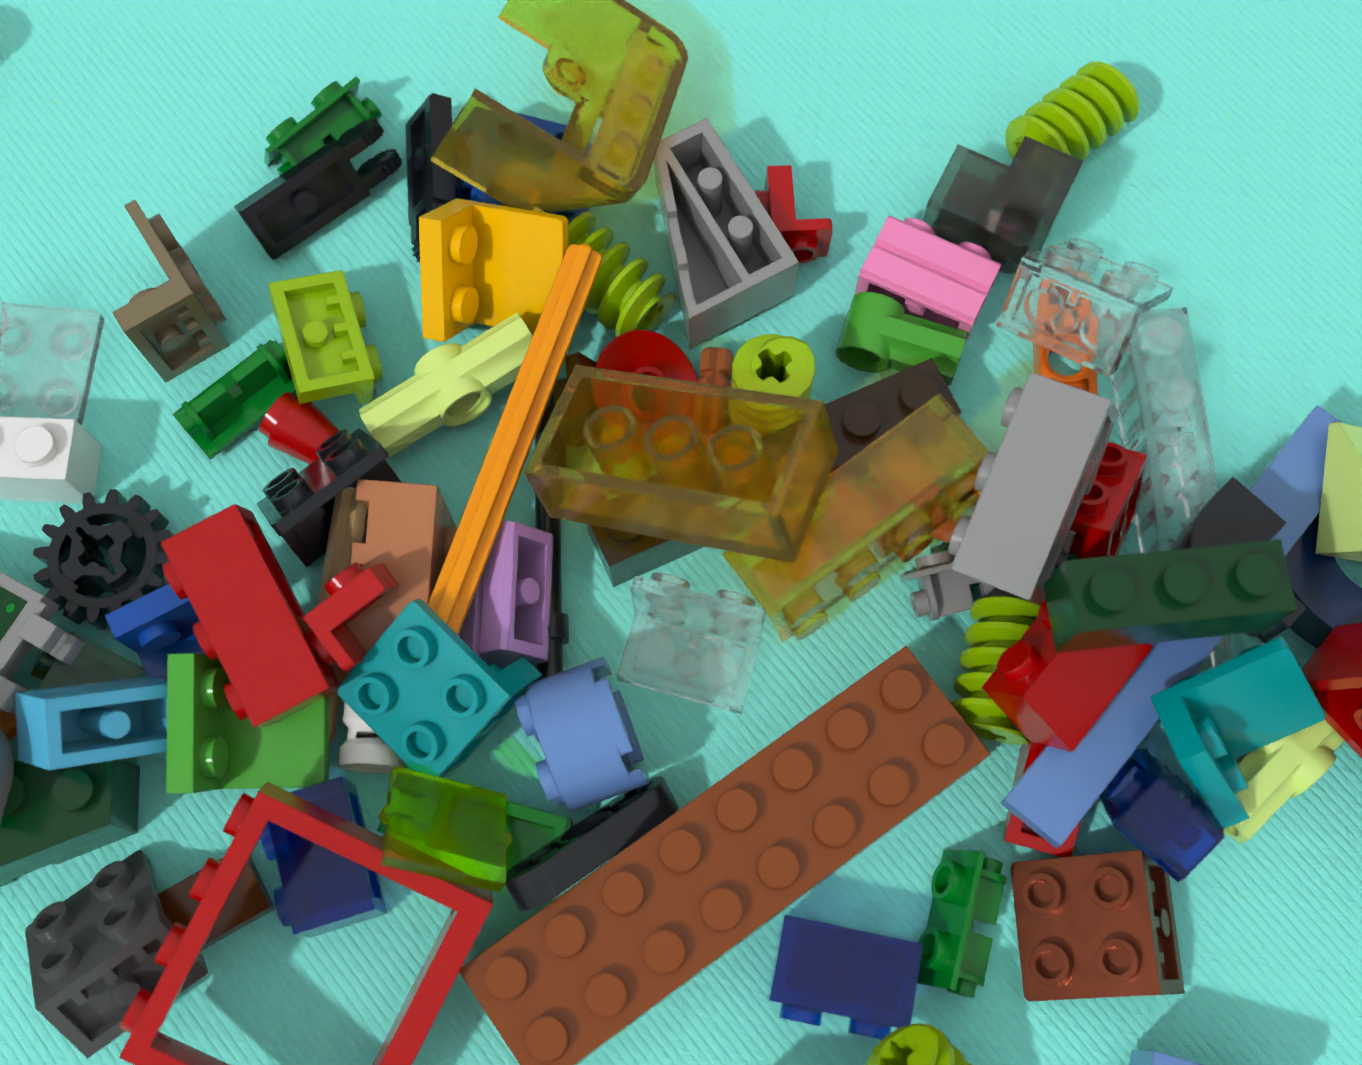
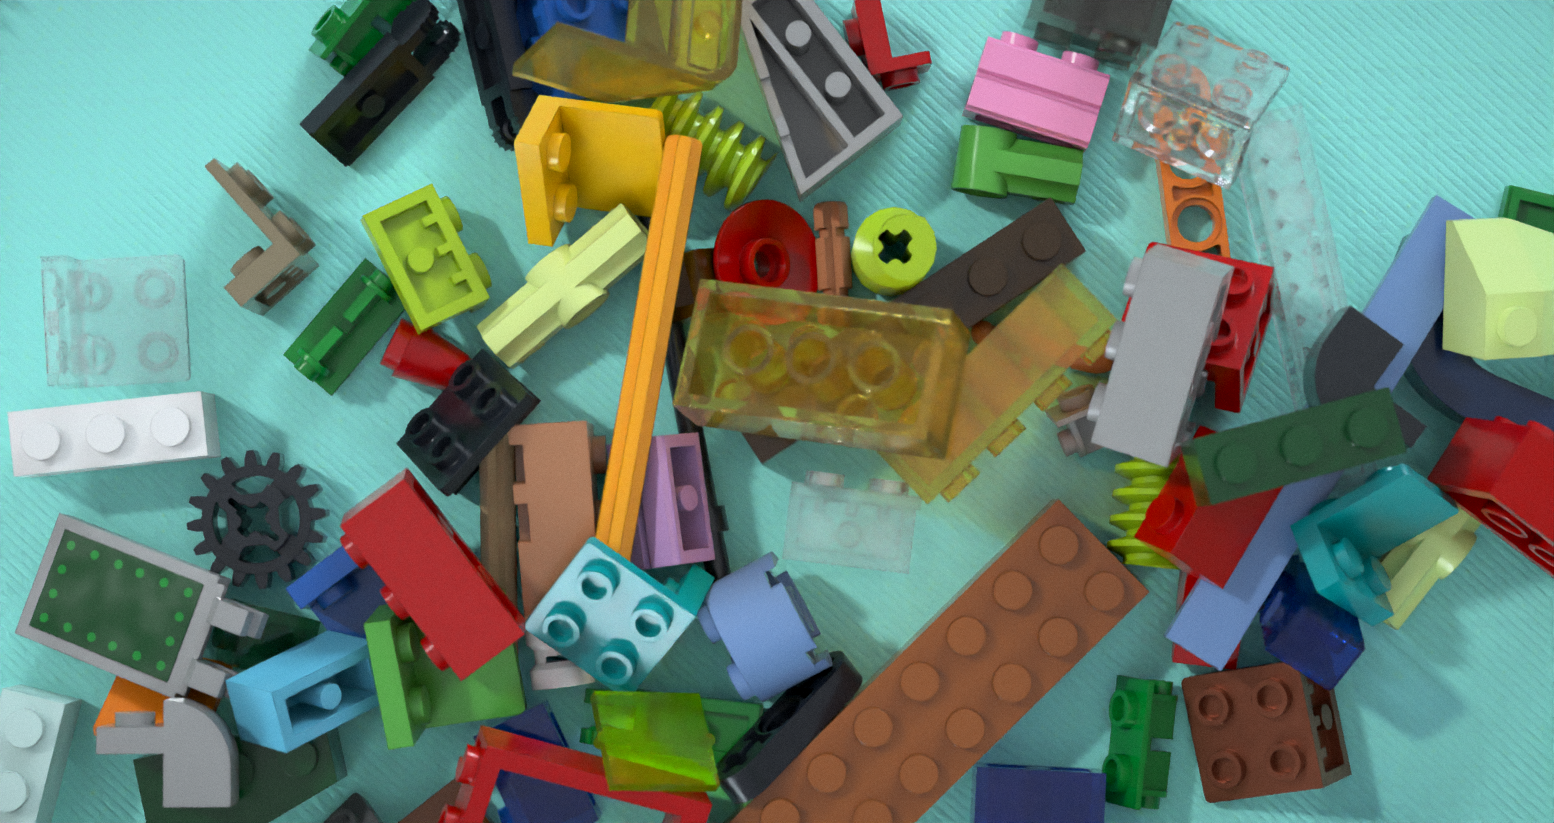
camera: 15 degrees left, 15 degrees up
(350, 595) = (523, 545): red bracket -> none

